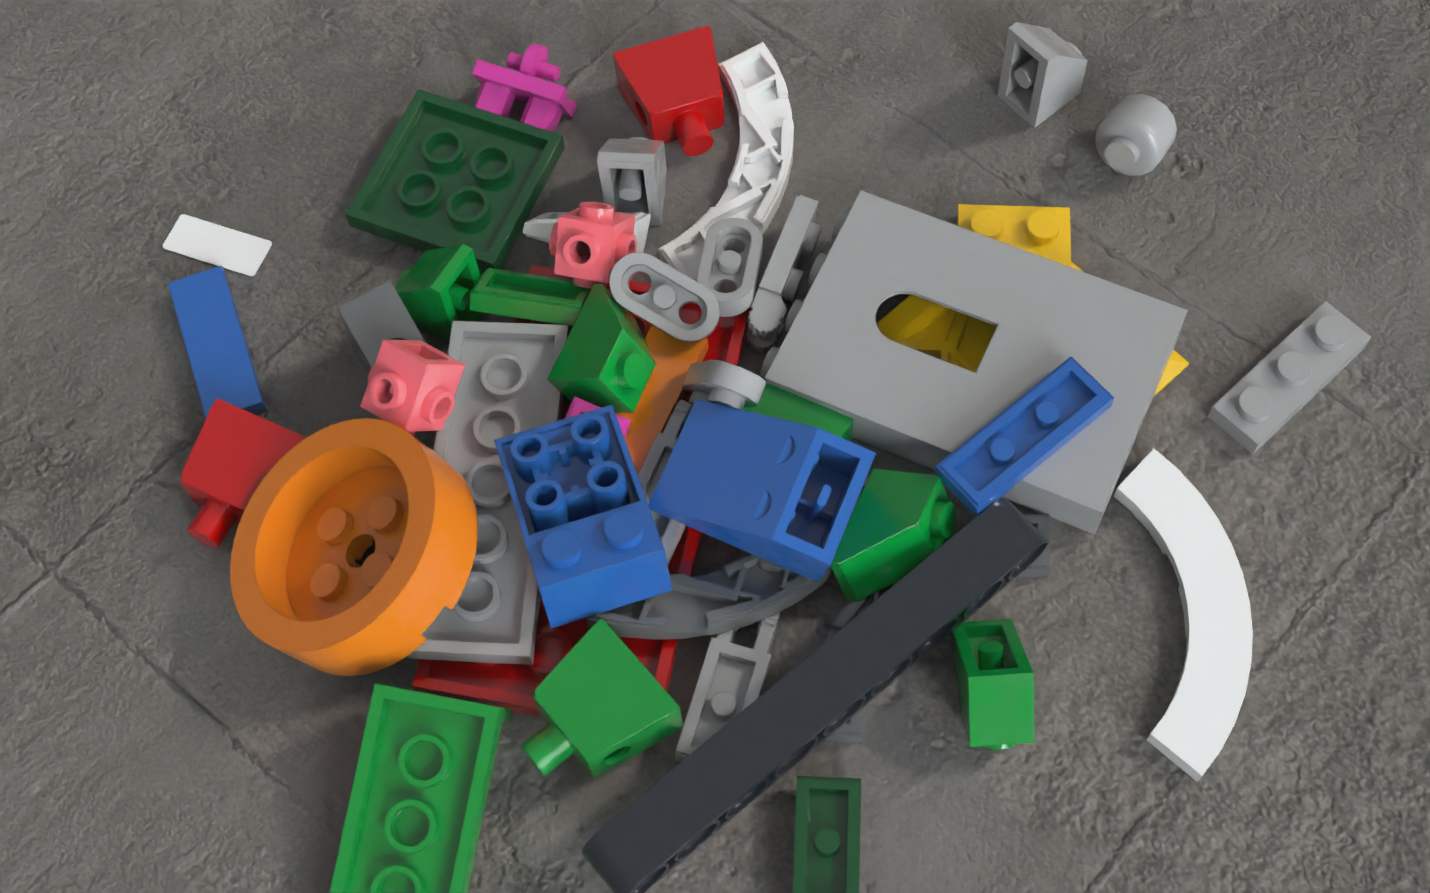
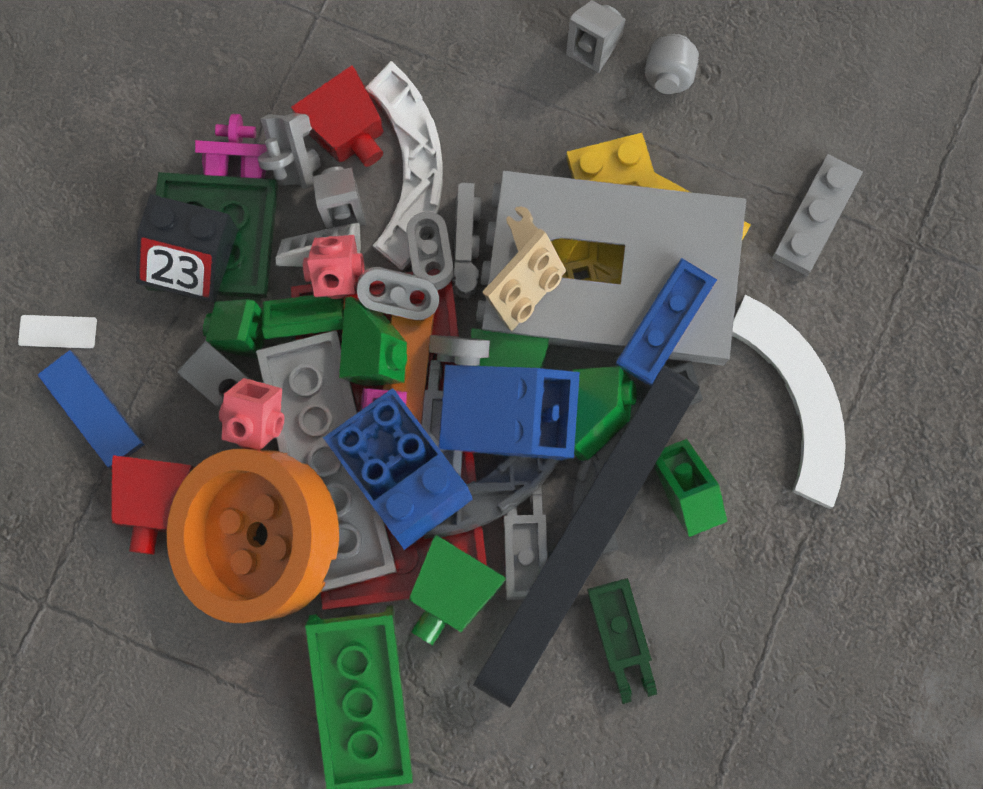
camera: 20 degrees left, 15 degrees up
(412, 175) = (183, 248): none -> black slope
(588, 100) = (286, 149): none -> light grey hips
(841, 311) = (528, 275): none -> tan plate

